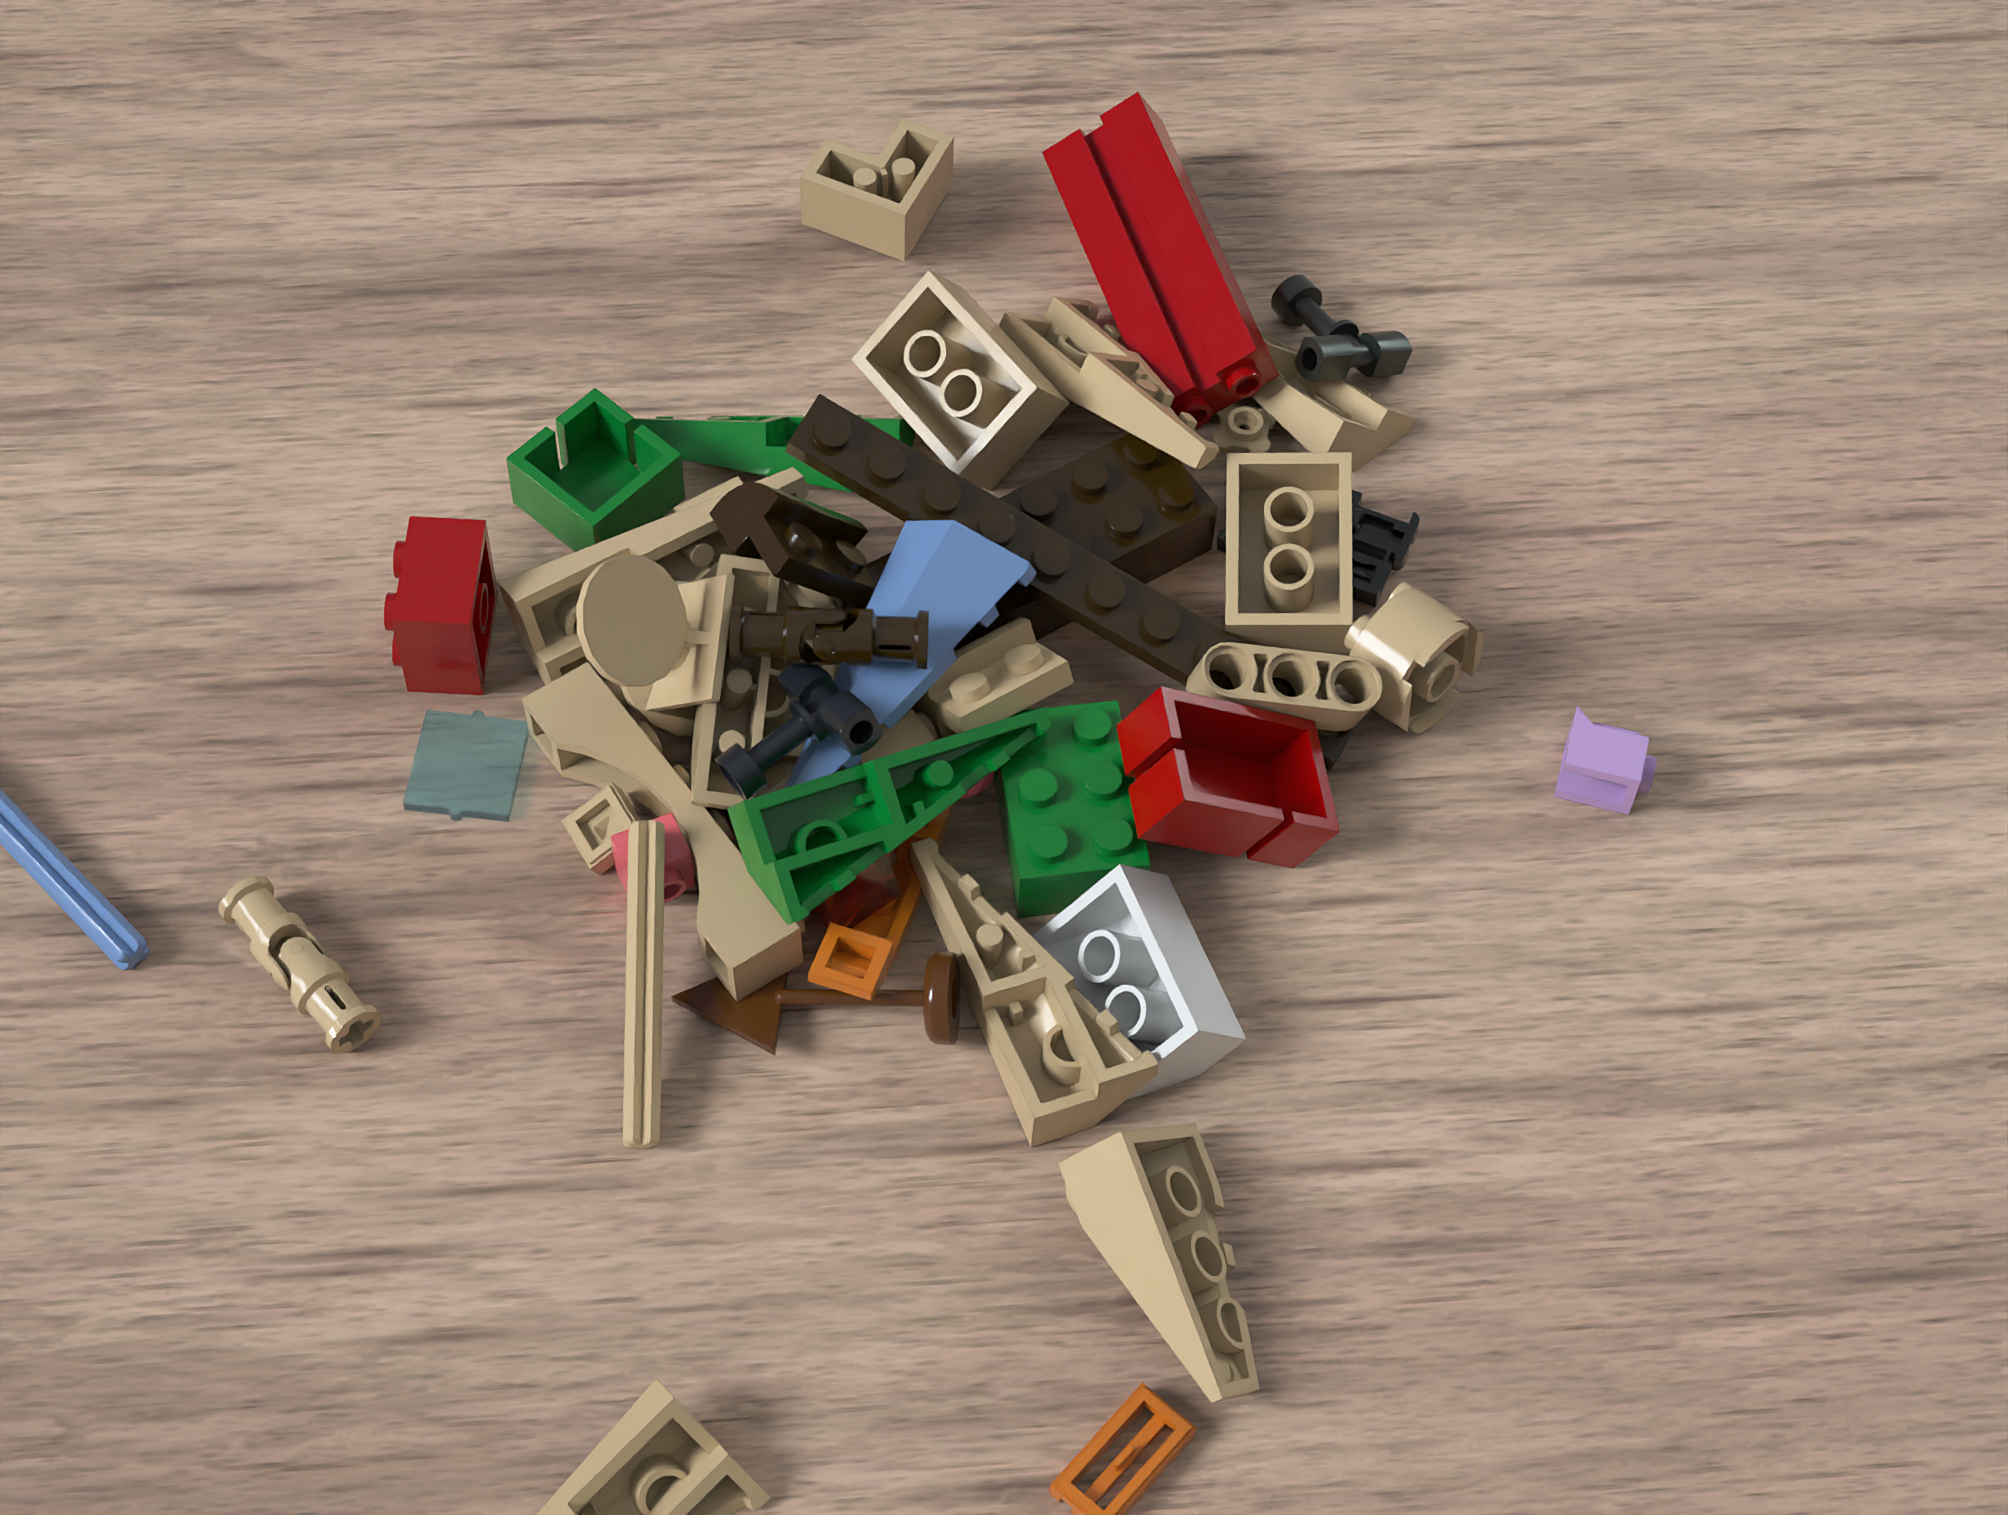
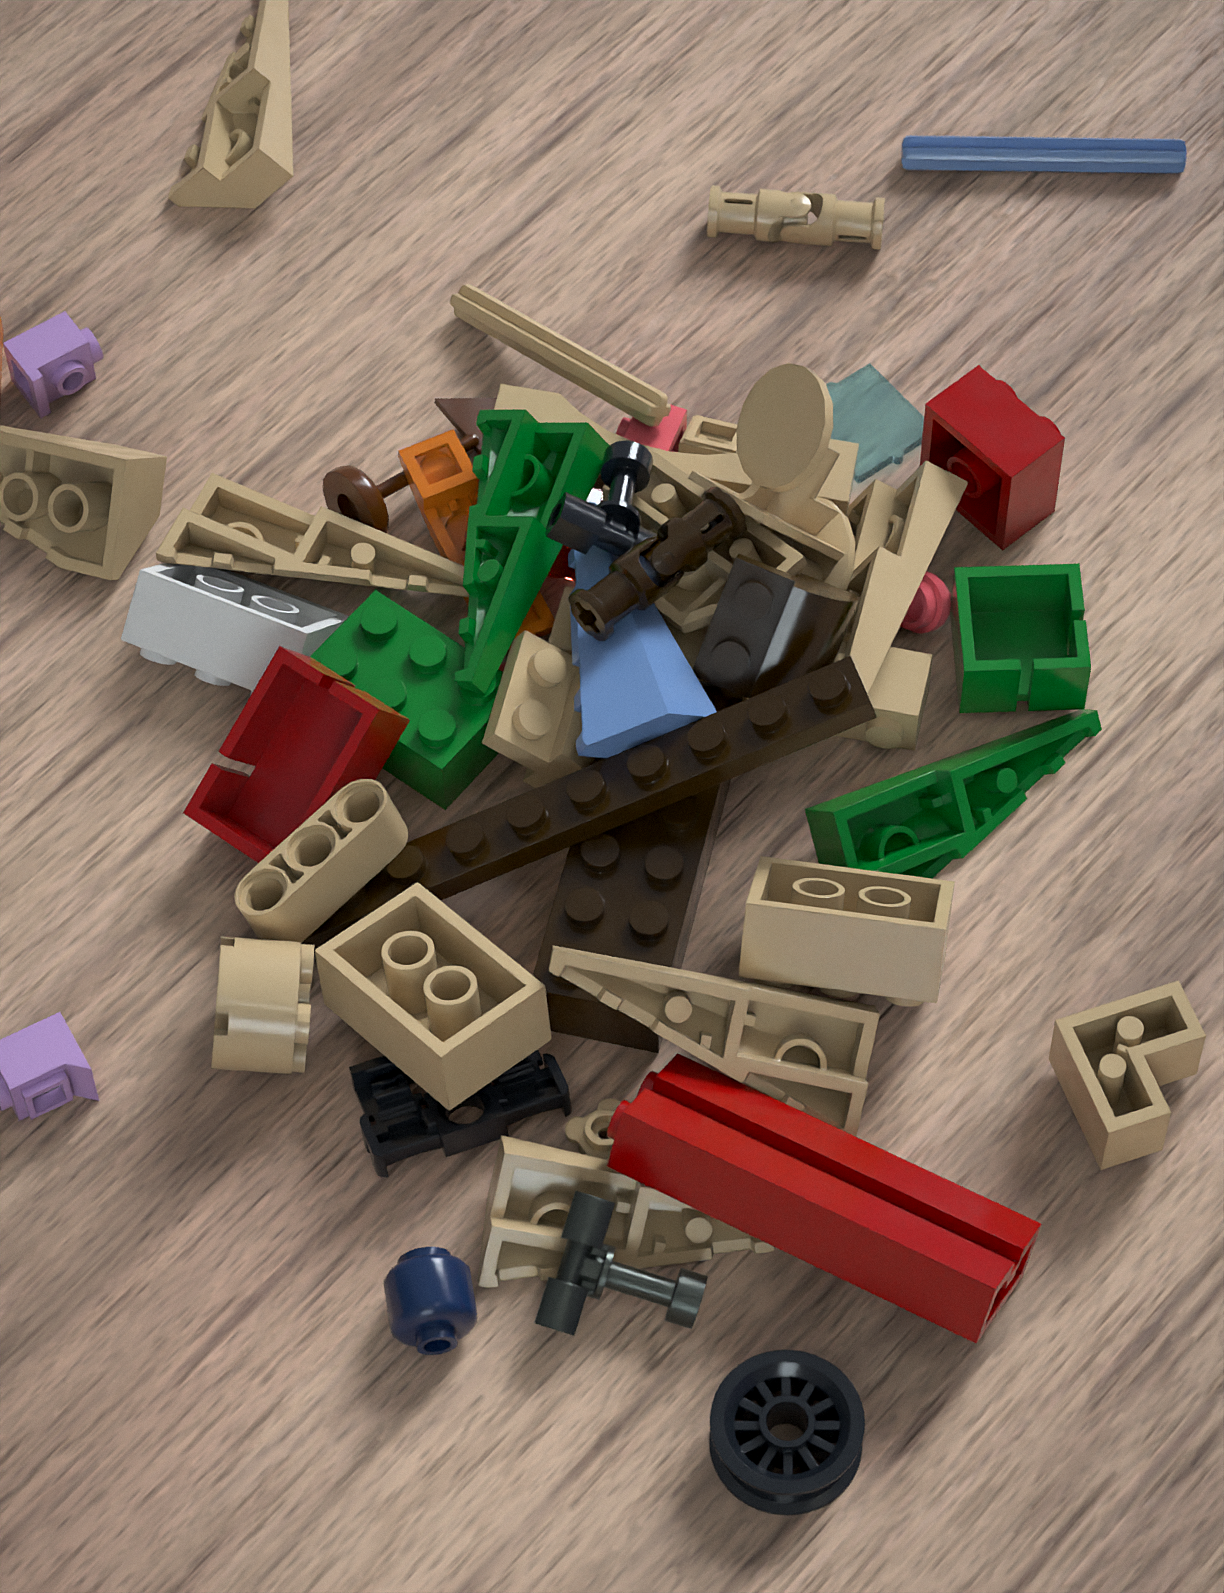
camera: 140 degrees right, 0 degrees up
(1051, 1379) = (52, 361): none -> lavender brick
(1313, 193) = (815, 1380): none -> black wheel
(1465, 415) = (430, 1300): none -> dark blue head

